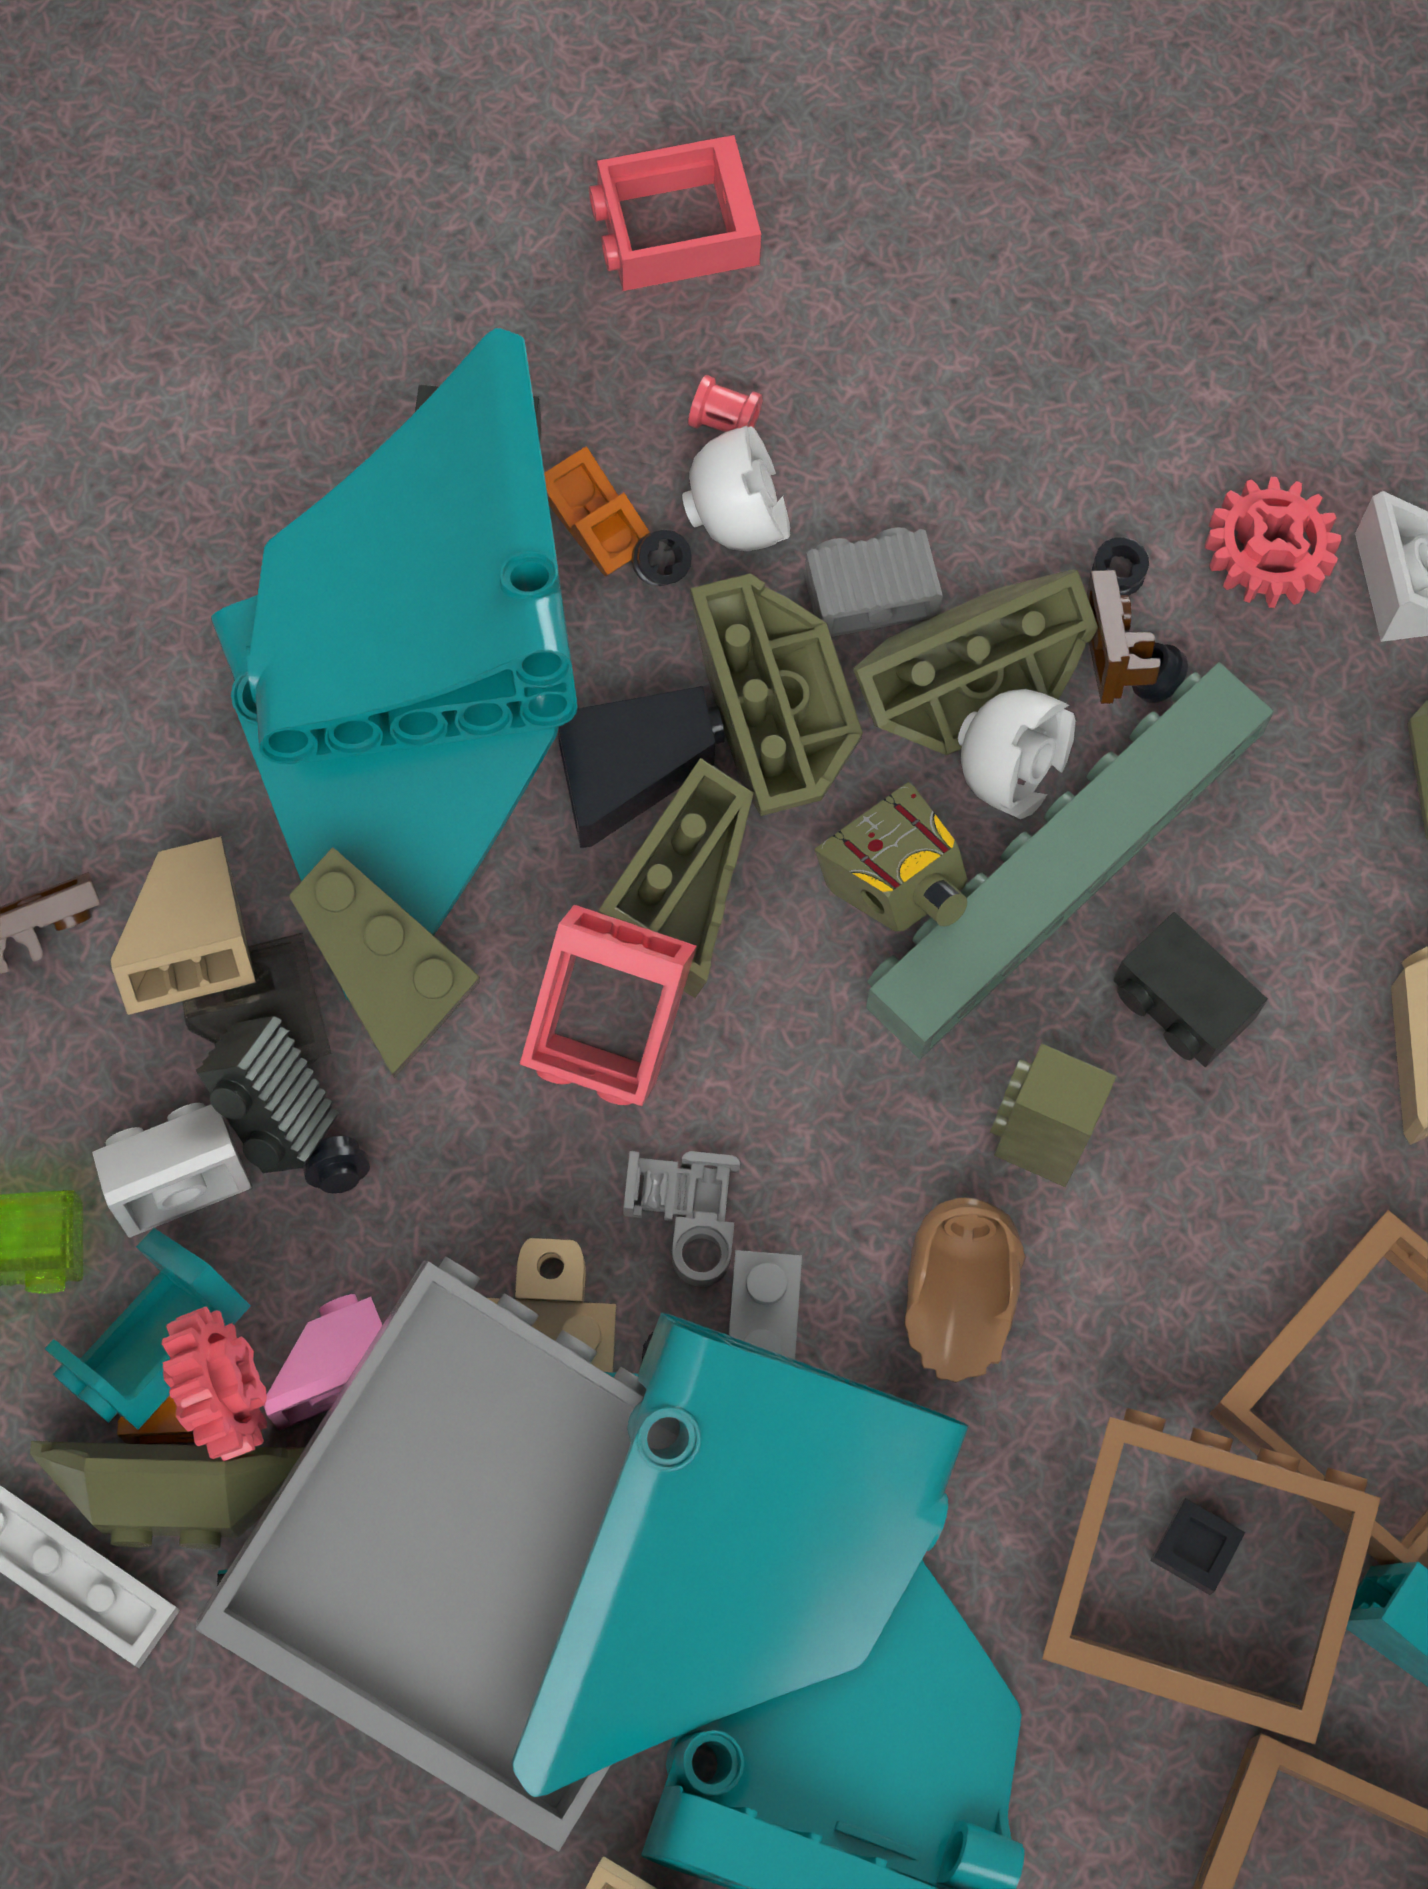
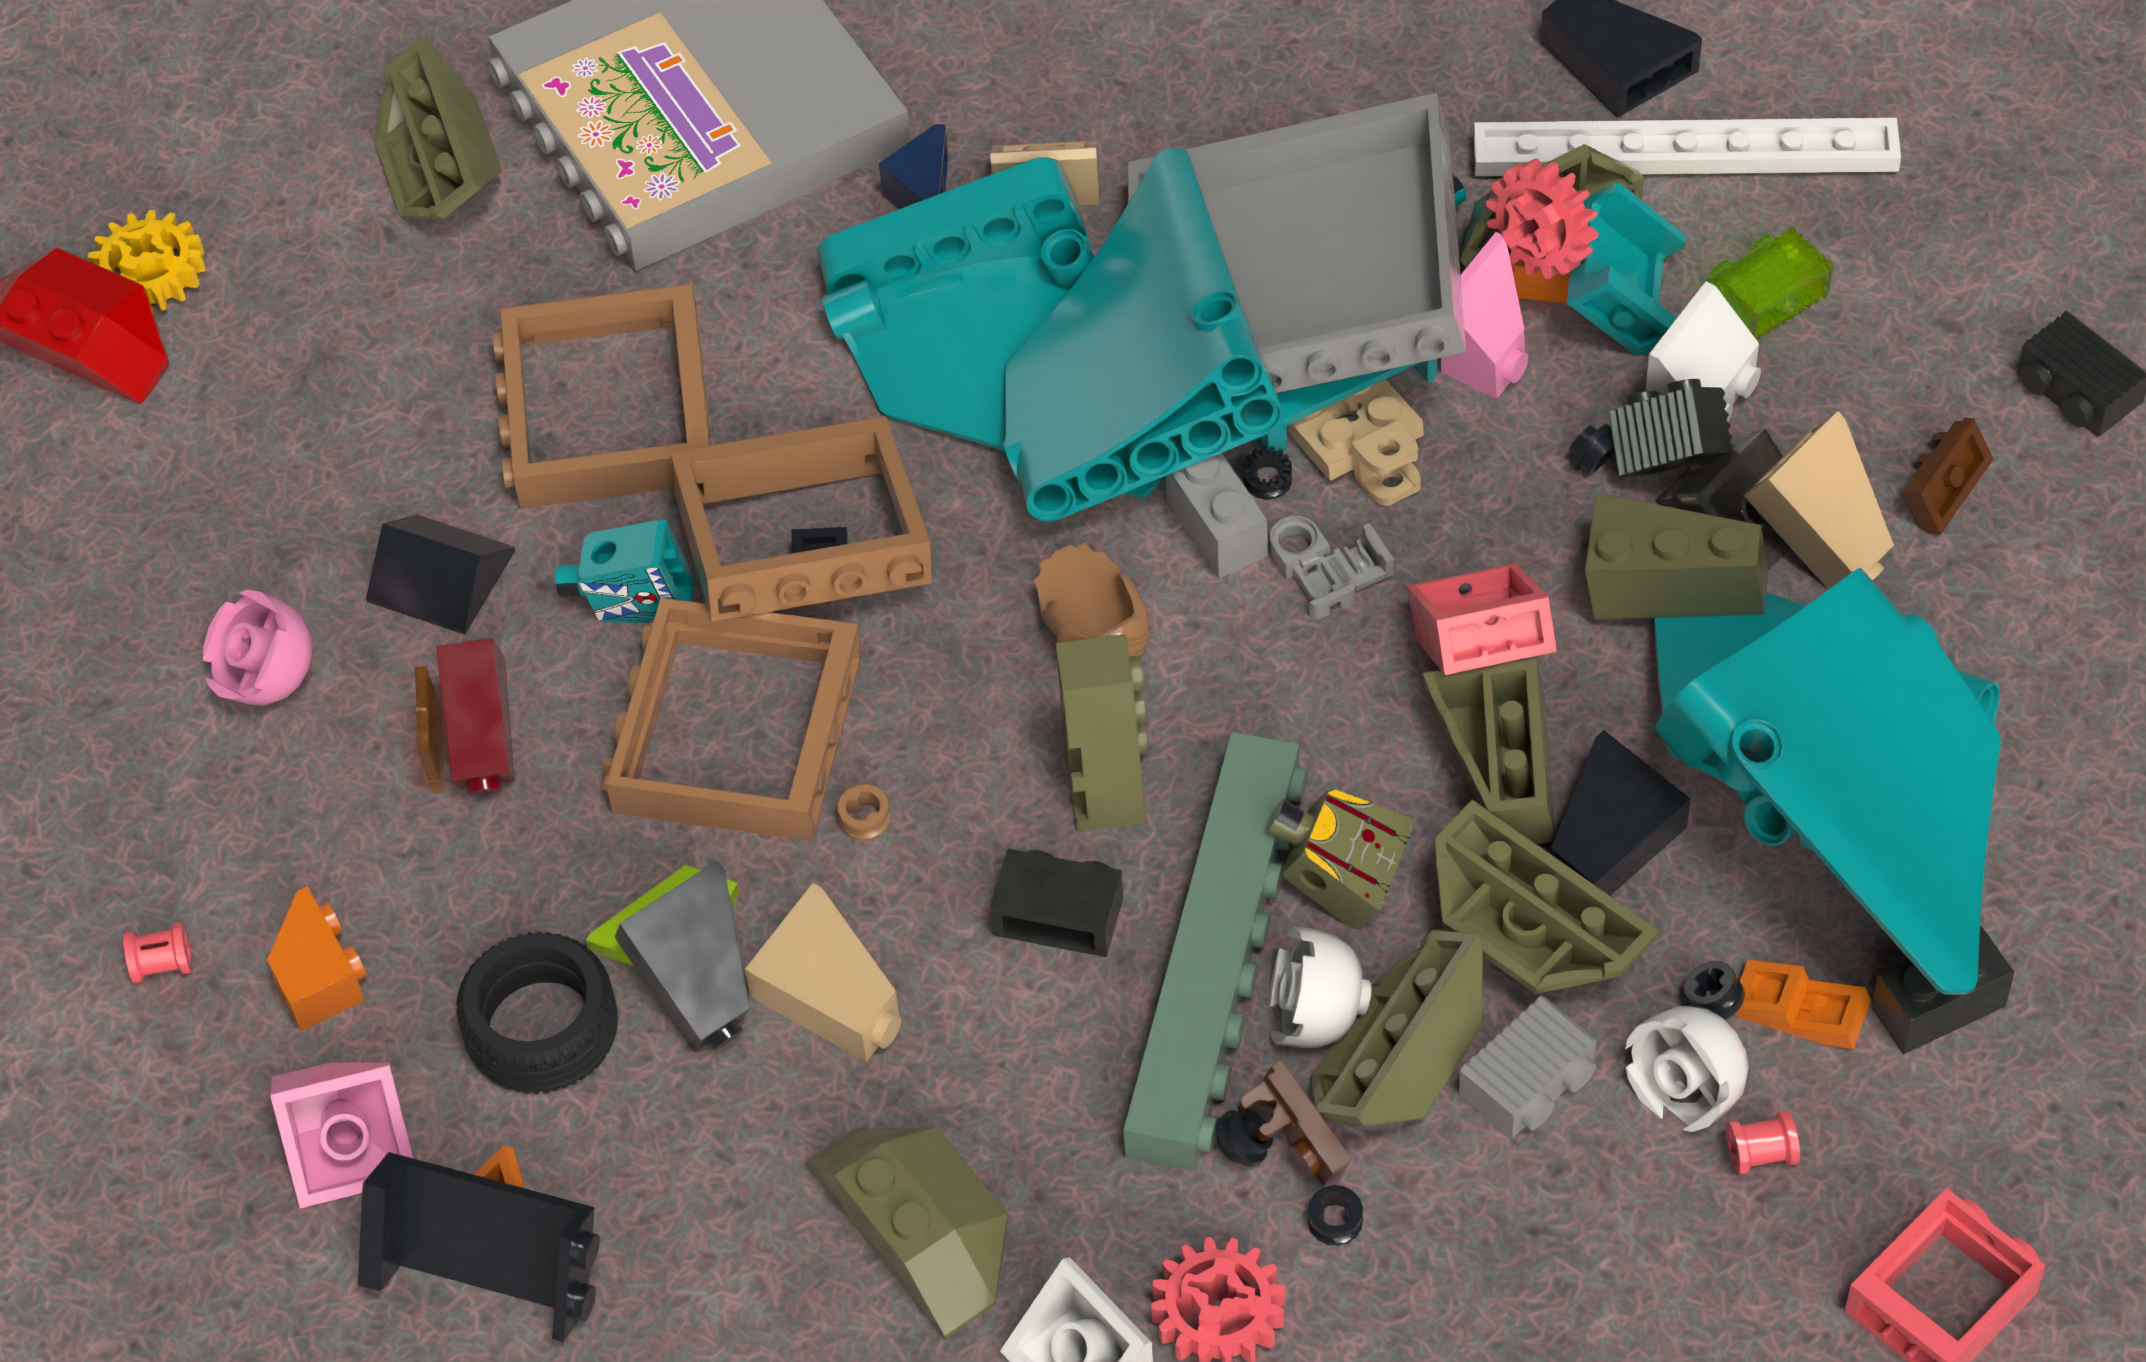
camera: 155 degrees right, 15 degrees down
(1318, 1232) = (875, 822): none -> medium nougat bush

